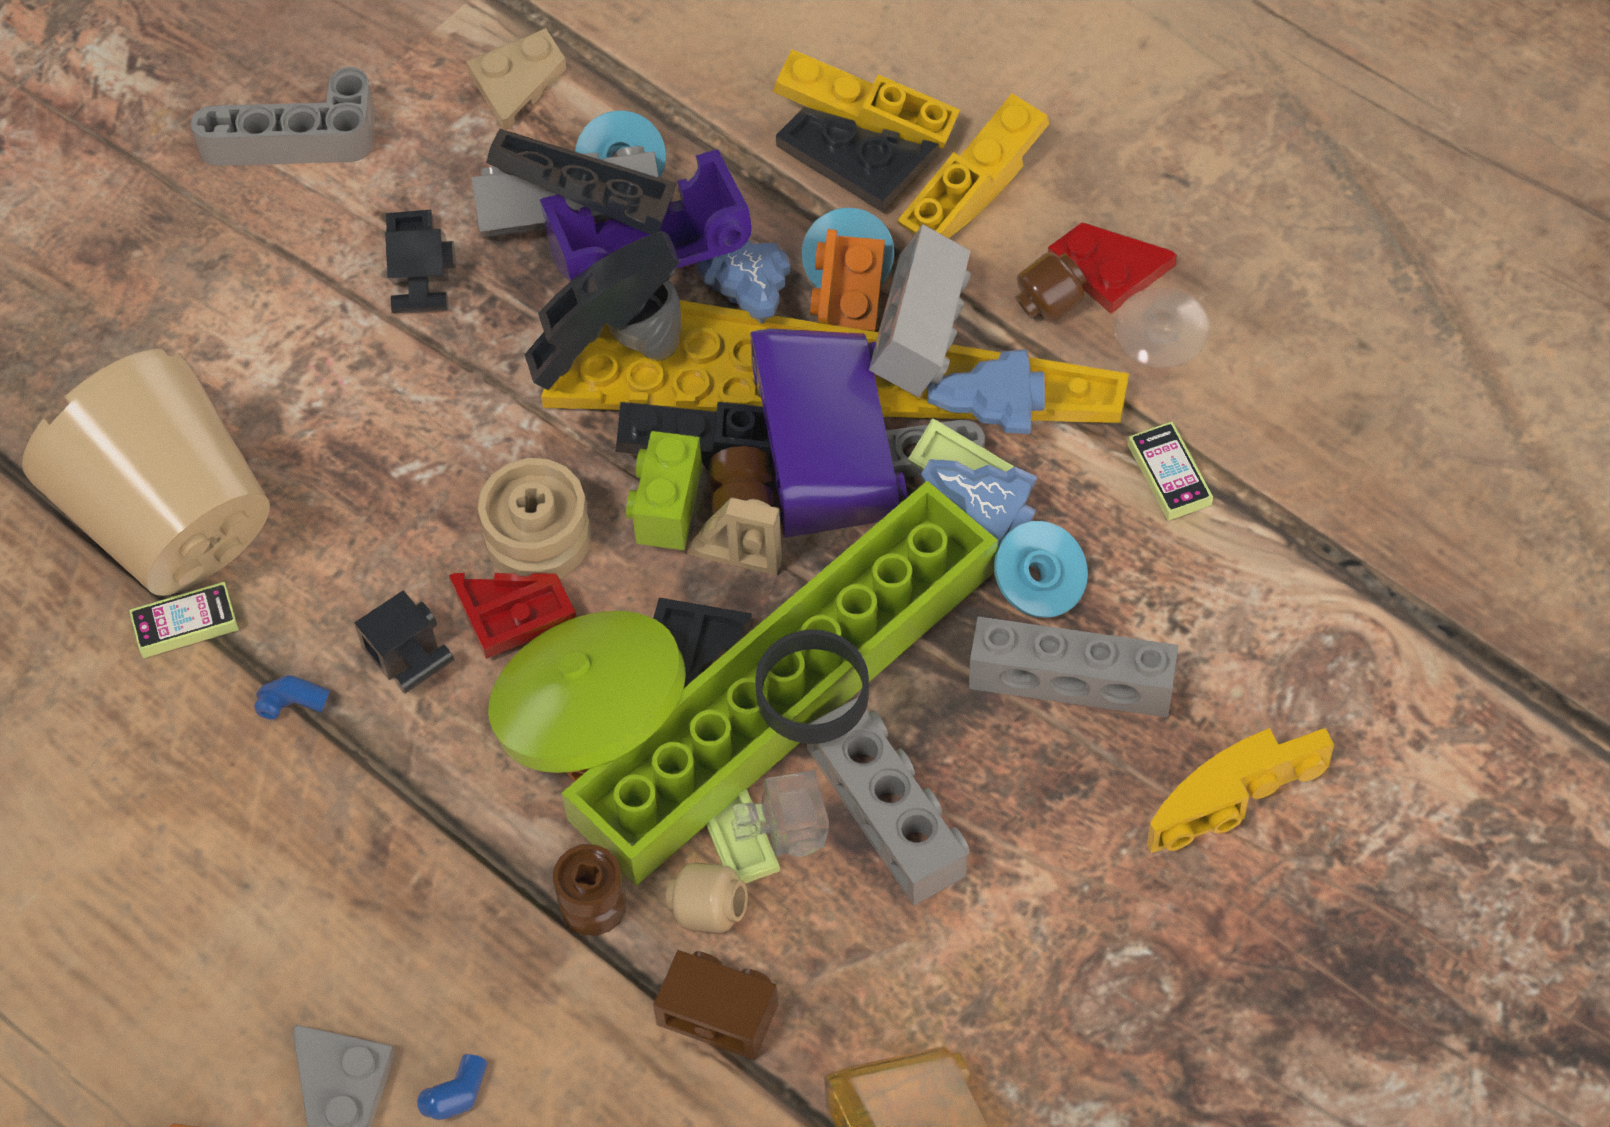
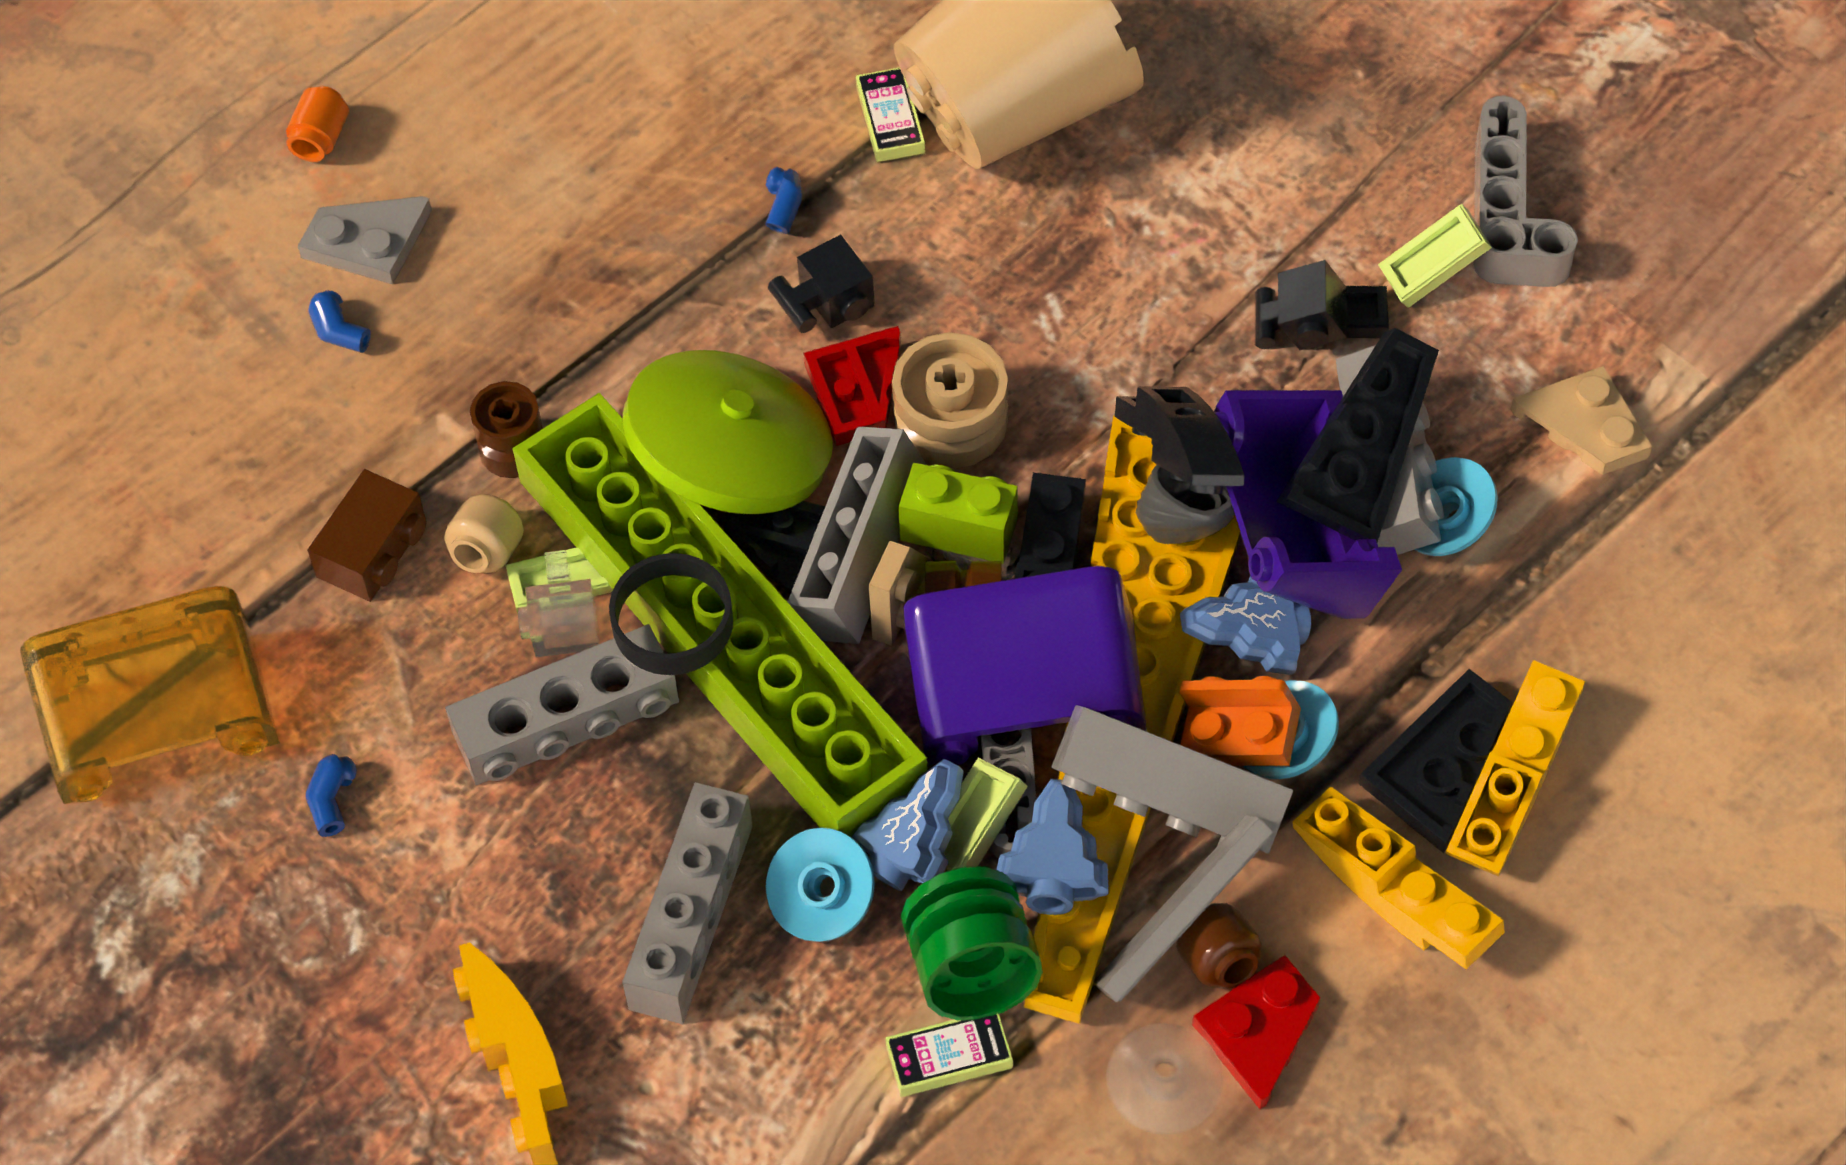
camera: 95 degrees right, 0 degrees up
(360, 172) = (1434, 255): none -> yellowish green tile
(686, 573) = (853, 534): none -> light grey brick
(996, 998) = (322, 790): none -> blue arm
(1031, 297) = (1183, 908): none -> light grey tile
(1091, 437) = (971, 943): none -> green wheel

